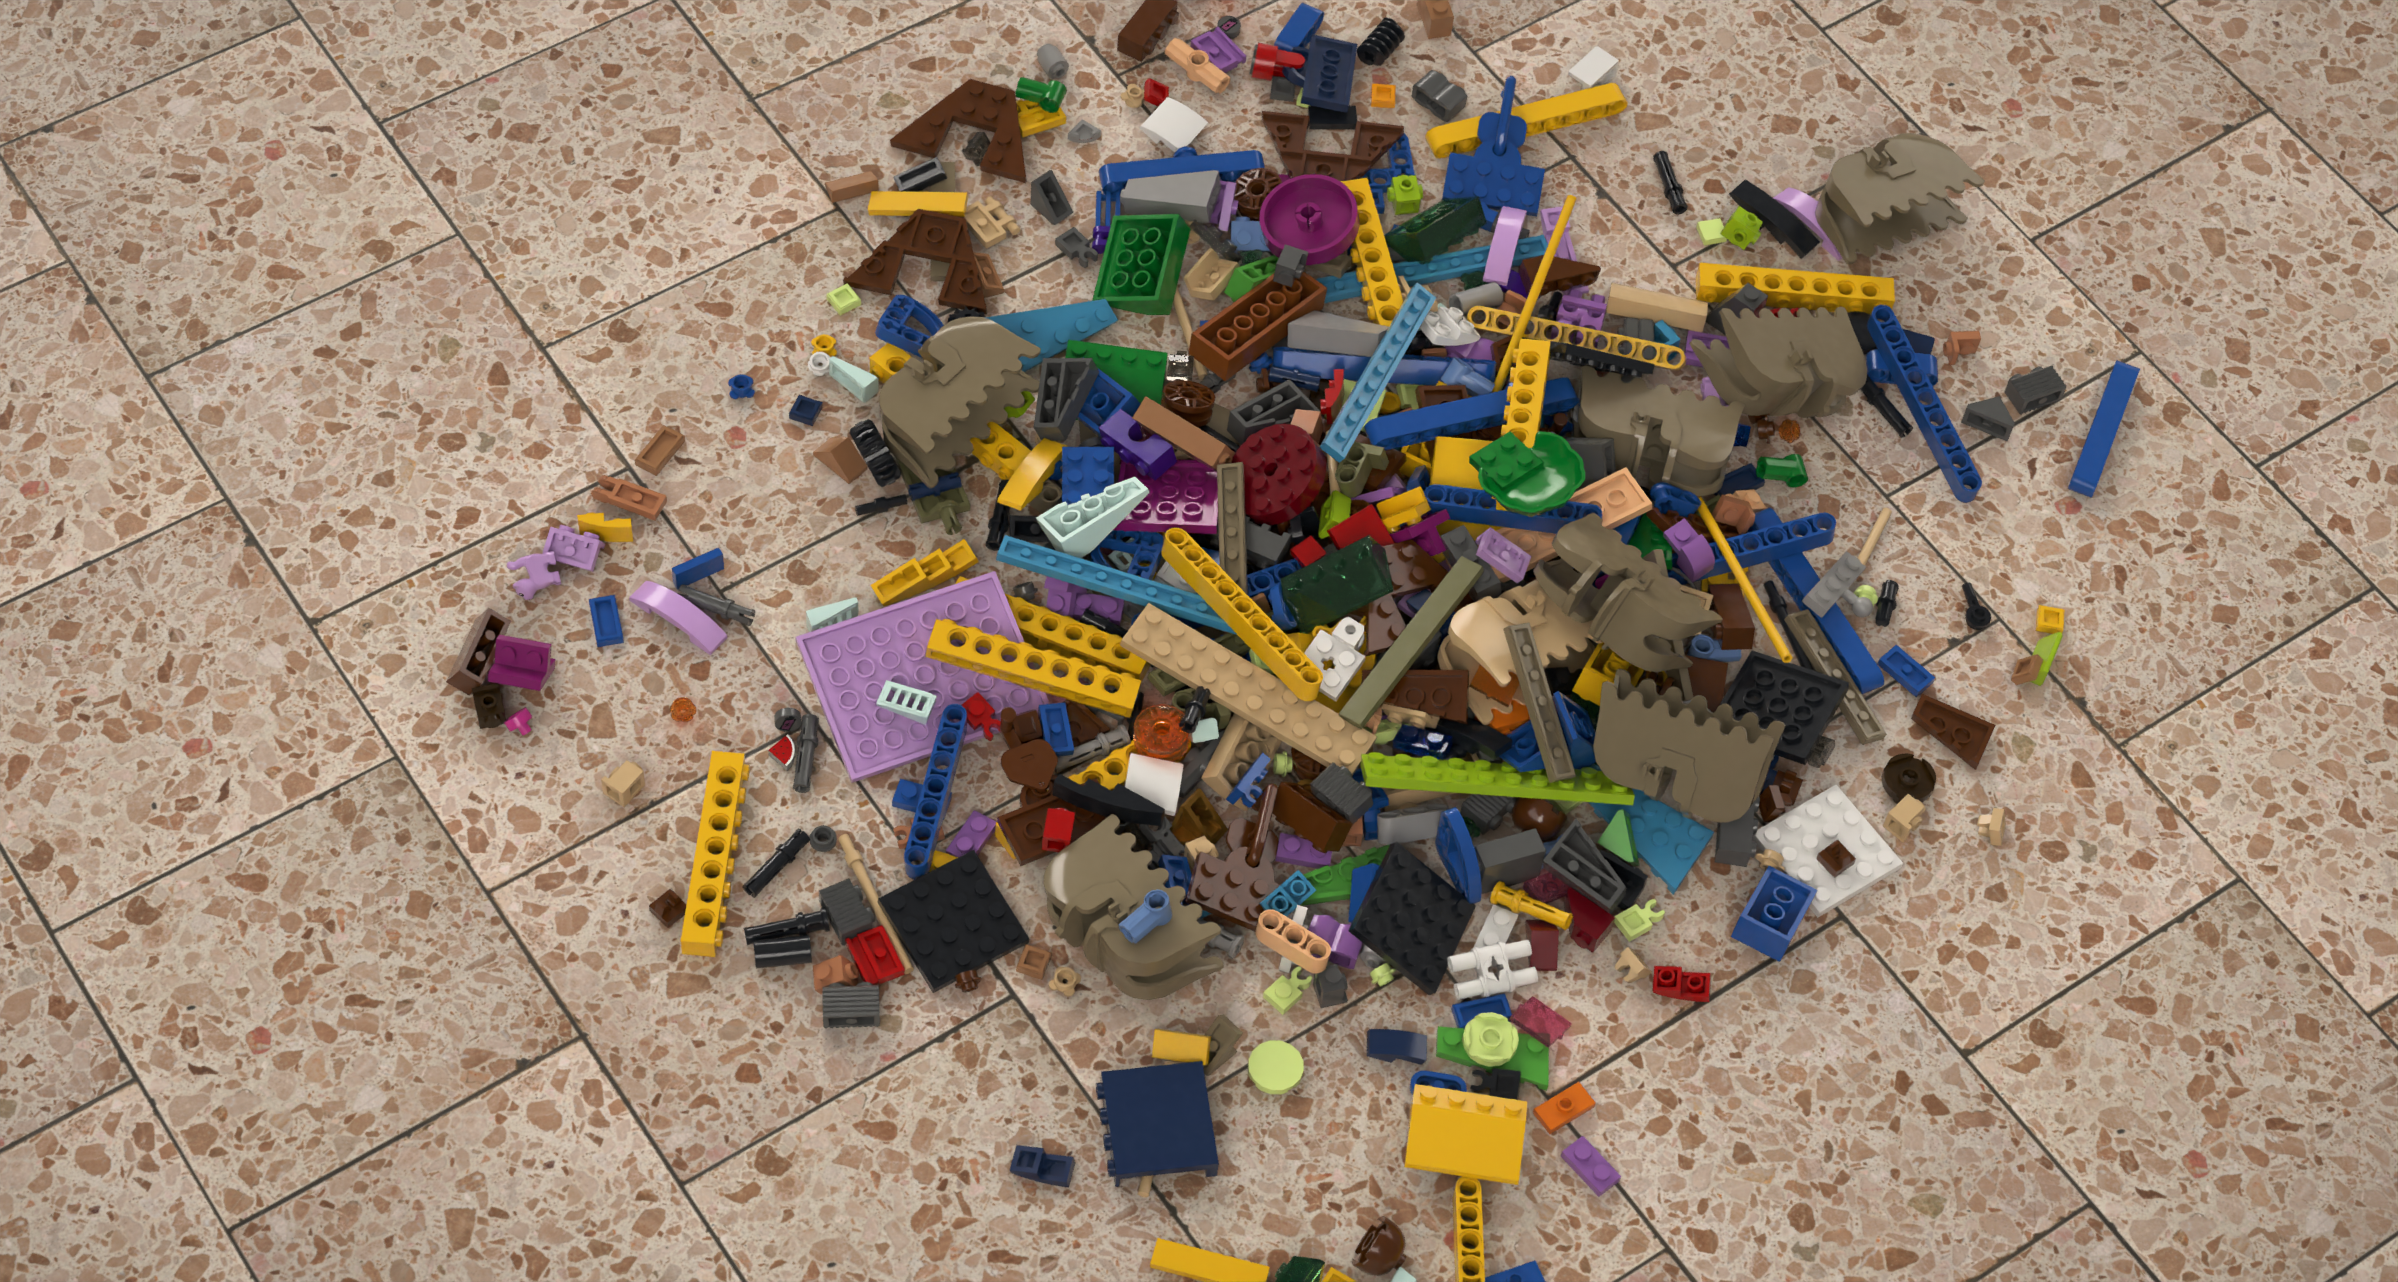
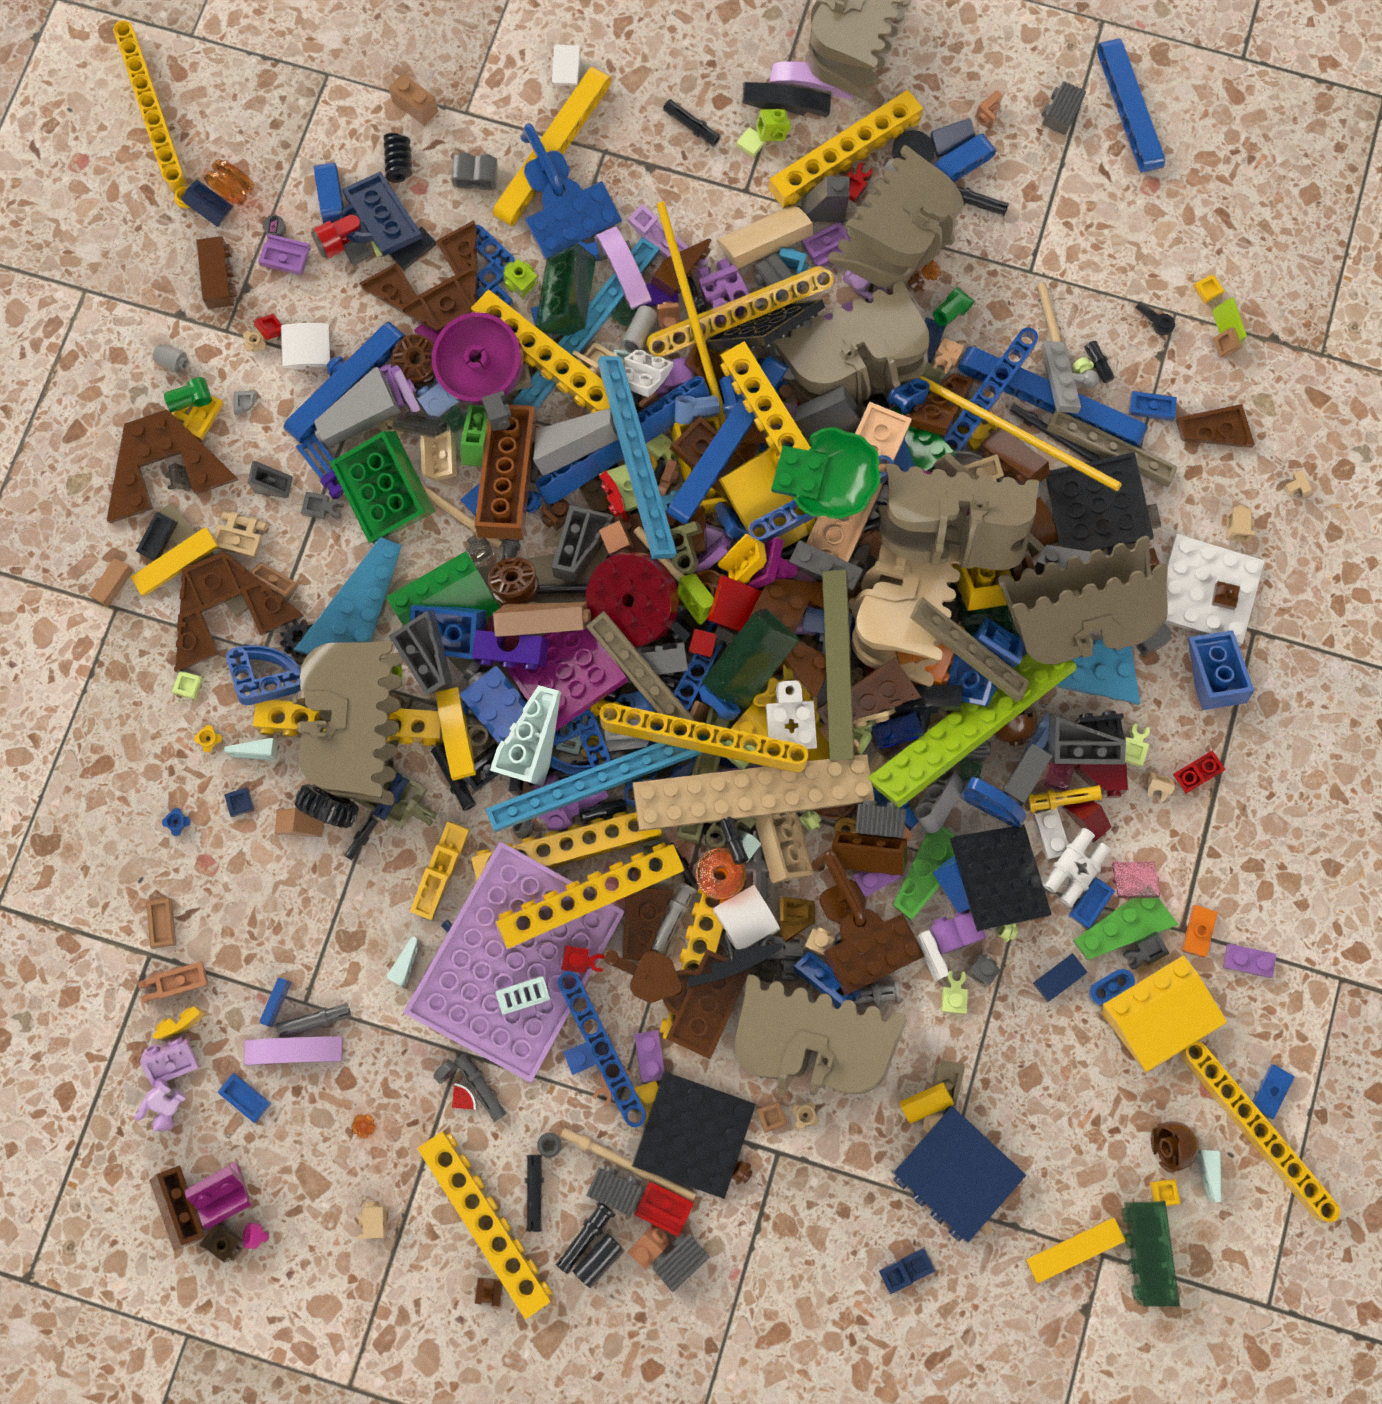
camera: 35 degrees left, 20 degrees up
(815, 359) = (211, 755): white plate -> none
(1027, 725) = (620, 942): reddish brown tile -> none
(1056, 728) = (642, 927): blue plate -> none
(1058, 829) = (719, 1017): red brick -> none
(1146, 917) = (849, 1054): medium blue piece -> none
(1197, 65) = (267, 279): light nougat piece -> none
(1243, 789) = (805, 853): blue plate -> none
(1275, 1067) = (995, 1060): yellowish green tile -> none
(1289, 894) = (903, 929): dark azure slope -> none
(1298, 952) = (957, 966): light nougat beam -> none
(1300, 379) = (569, 498): dark blue pin -> none
(1383, 95) = (433, 201): light orange tile -> none
(1490, 1039) = (1119, 924): yellowish green tile -> none
(1502, 554) = (847, 545): lavender bracket -> none
(1620, 839) = (1080, 698): bright green slope -> none
(1693, 550) = (961, 433): medium lavender brick -> none
(1734, 513) = (955, 370): nougat bracket -> none
(1770, 858) = (1184, 631): tan plate -> none
(1905, 764) = (1209, 500): dark brown plate -> none
(1922, 413) = (996, 179): blue beam -> none
(1990, 417) = (1054, 154): dark grey slope -> none

